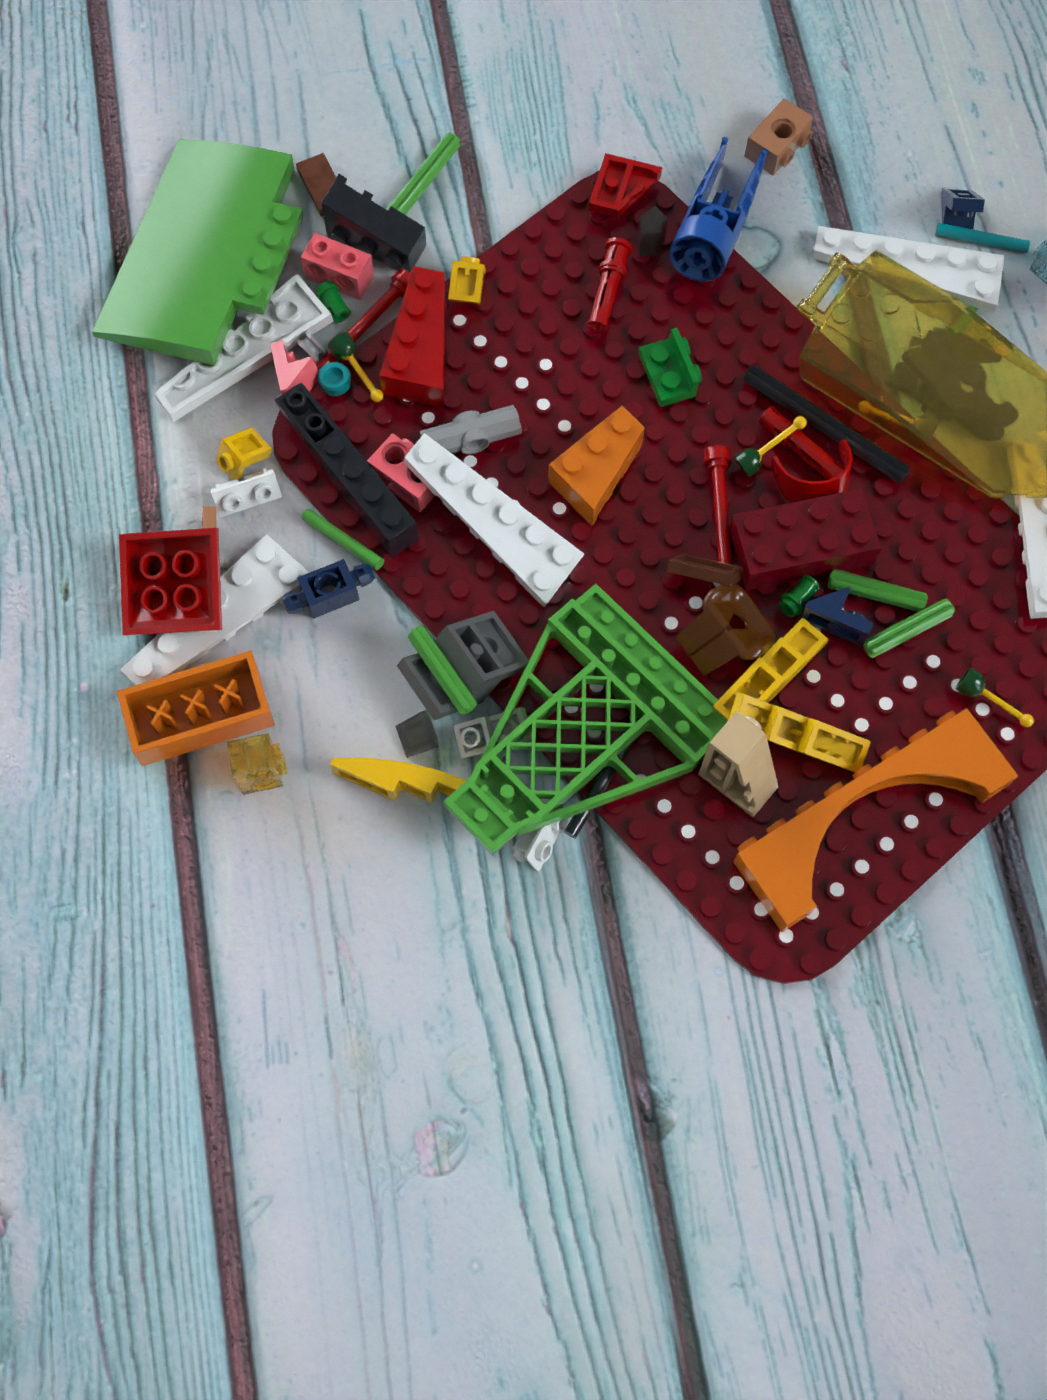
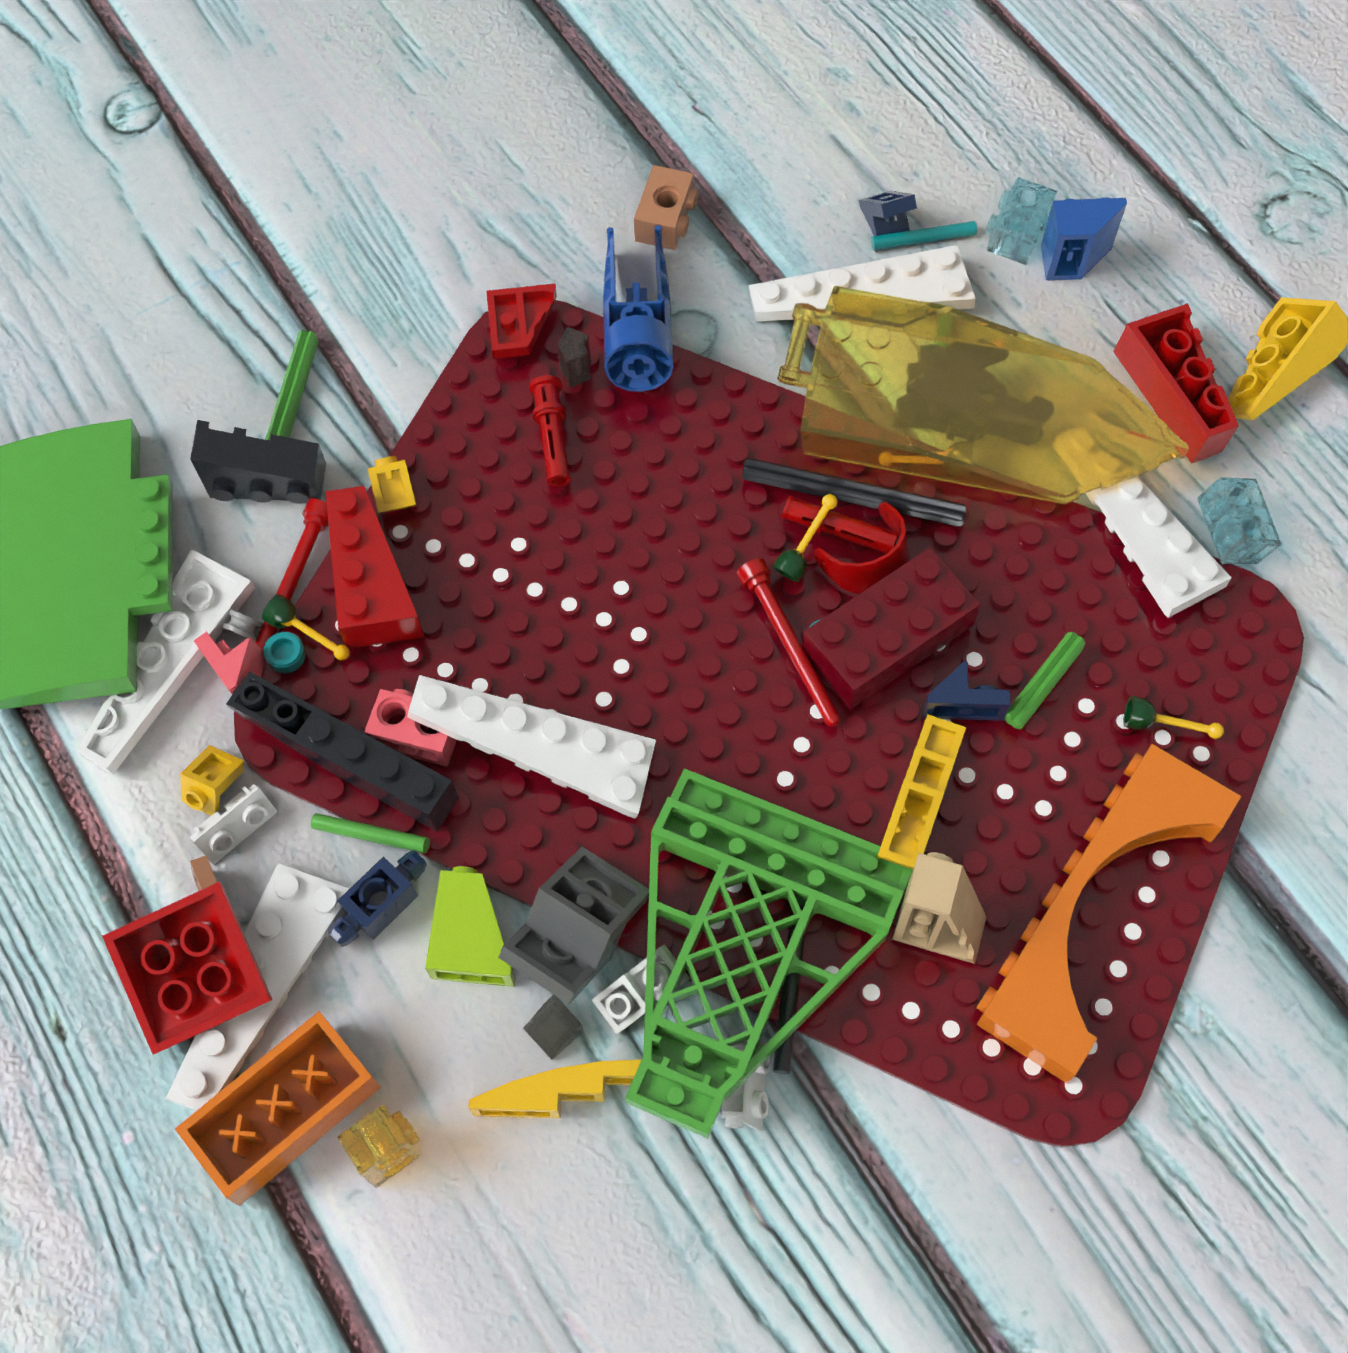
camera: 20 degrees left, 5 degrees down
(317, 178) = (171, 435): copper tile -> none
(329, 296) = (239, 560): green pin -> none
(338, 263) = (235, 524): coral brick -> none
(382, 639) = (466, 932): none -> lime slope
(442, 670) = (554, 941): bright green axle -> none
(474, 431) = (472, 650): light grey piece -> none
(596, 462) = (625, 633): orange wedge -> none
(670, 369) = (660, 497): green bracket -> none
(705, 569) = (799, 704): copper tile -> none
(713, 641) = (841, 779): reddish brown piece -> none
(793, 602) = (909, 701): green pin -> none
(804, 734) = (988, 845): yellow slope -> none
(878, 590) = (992, 652): bright green axle -> none

